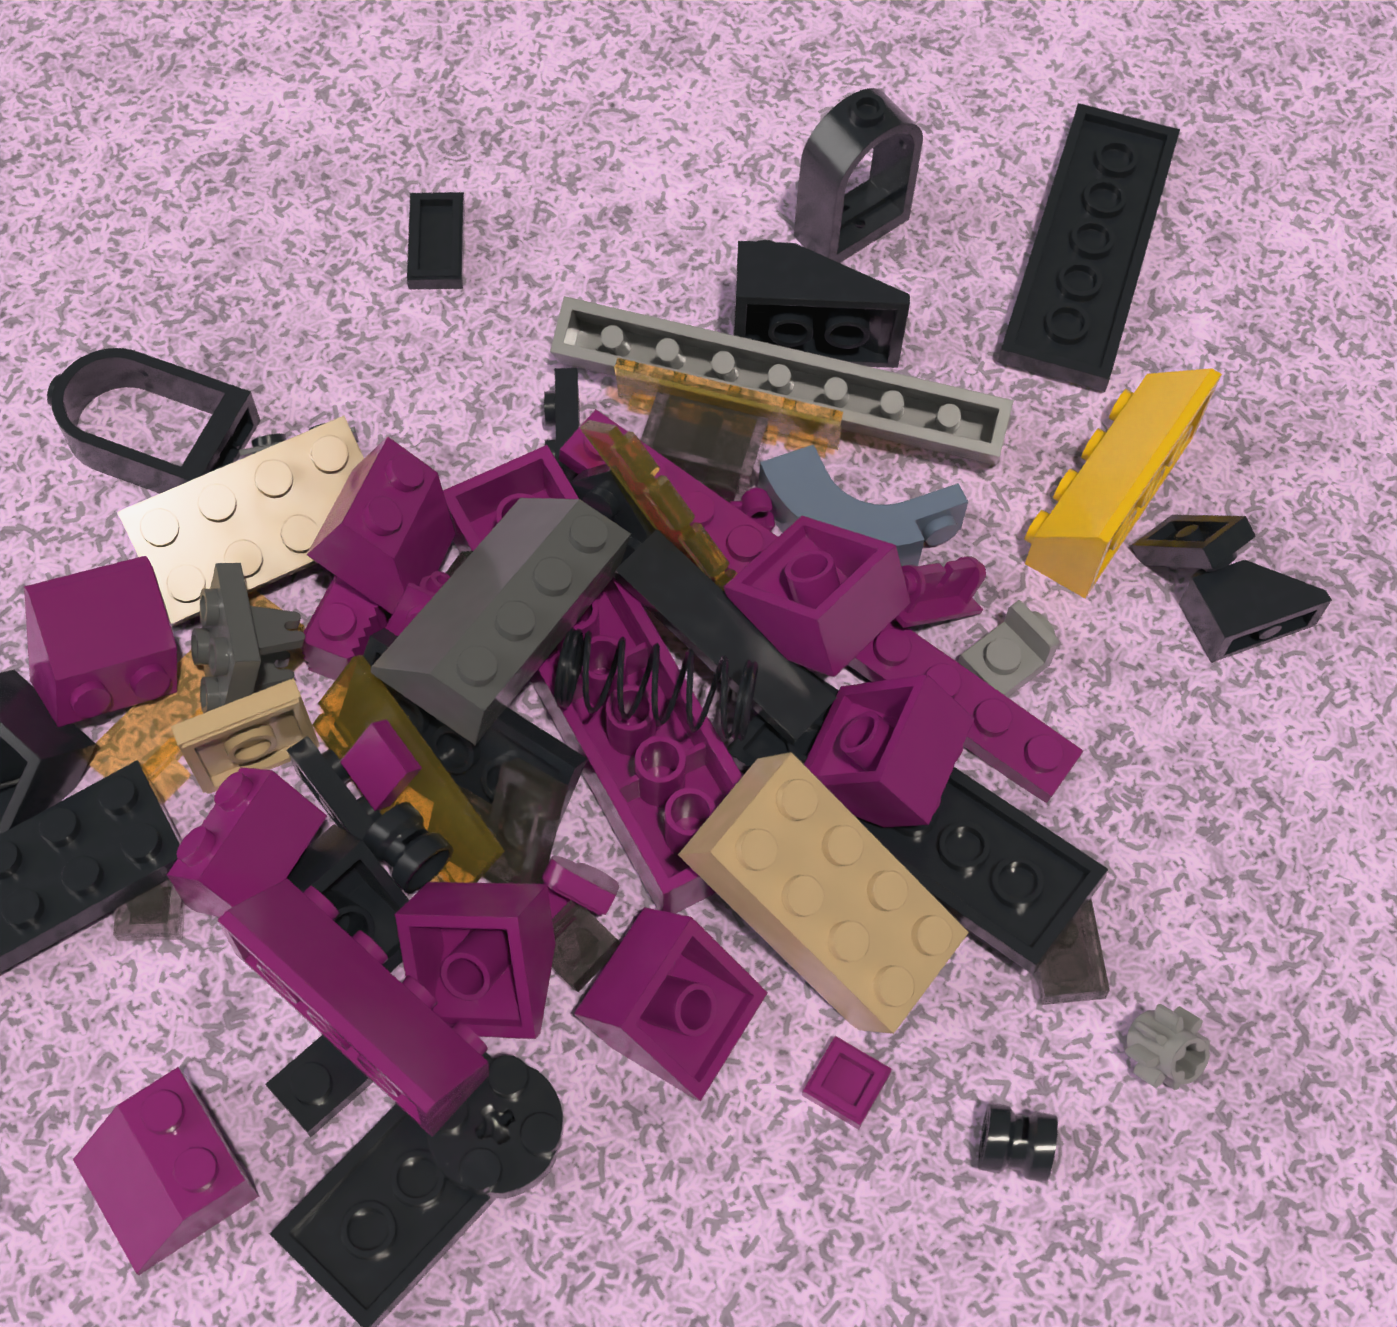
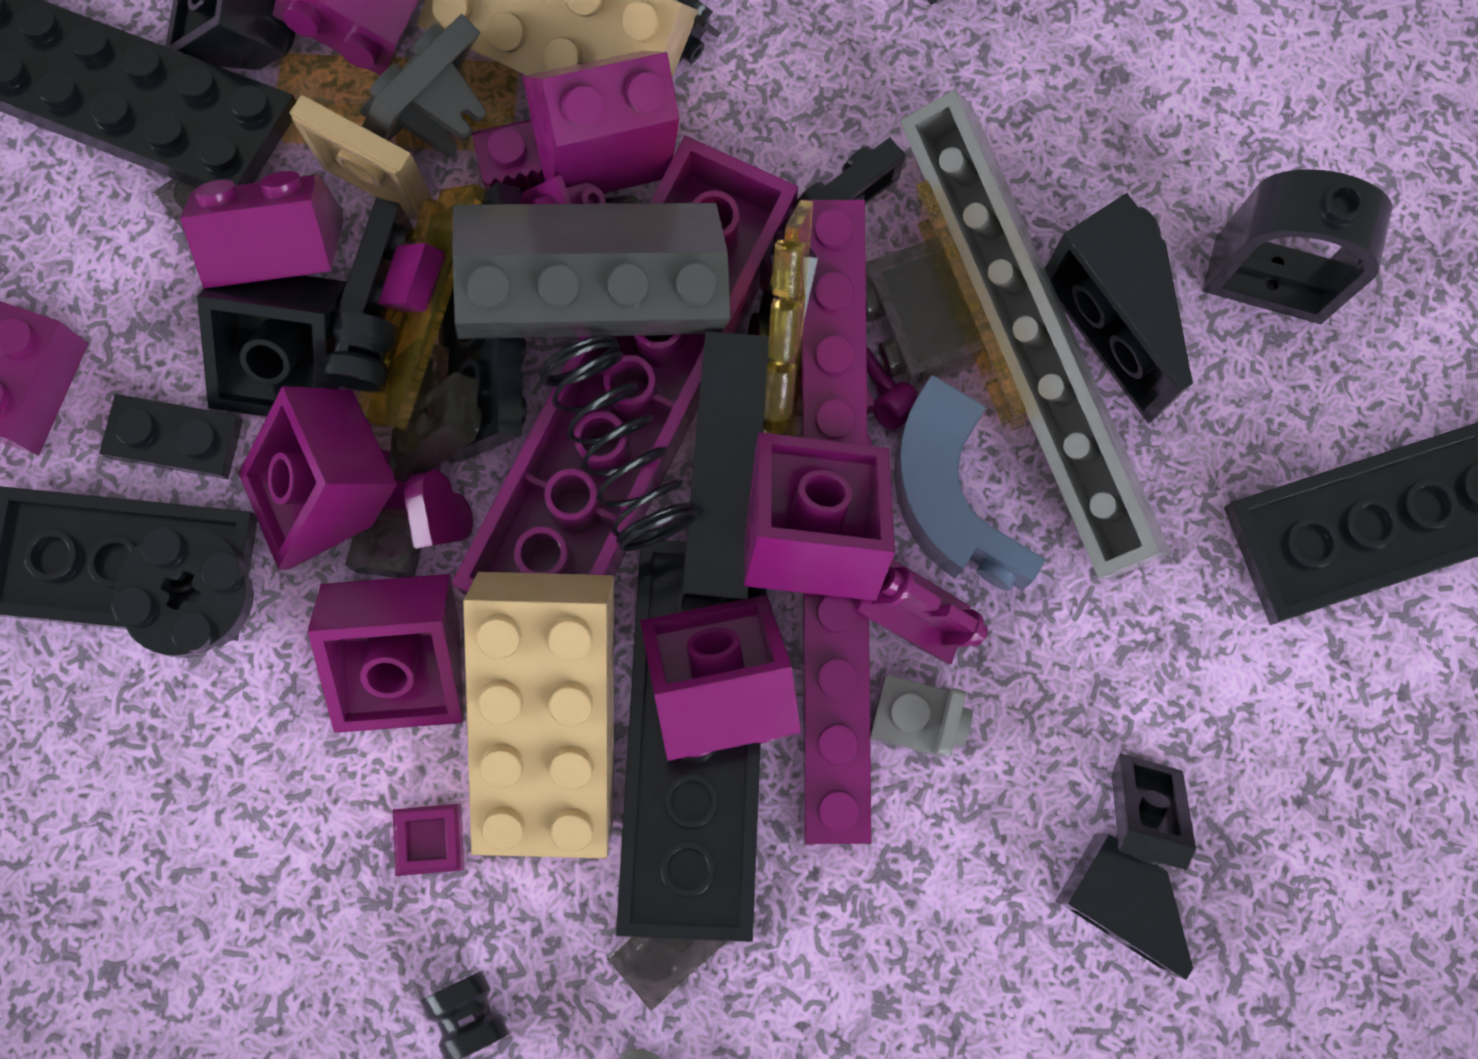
camera: 55 degrees right, 15 degrees up
(357, 1002) = (159, 412): magenta slope -> none
(1119, 477) = (1177, 698): yellow slope -> none

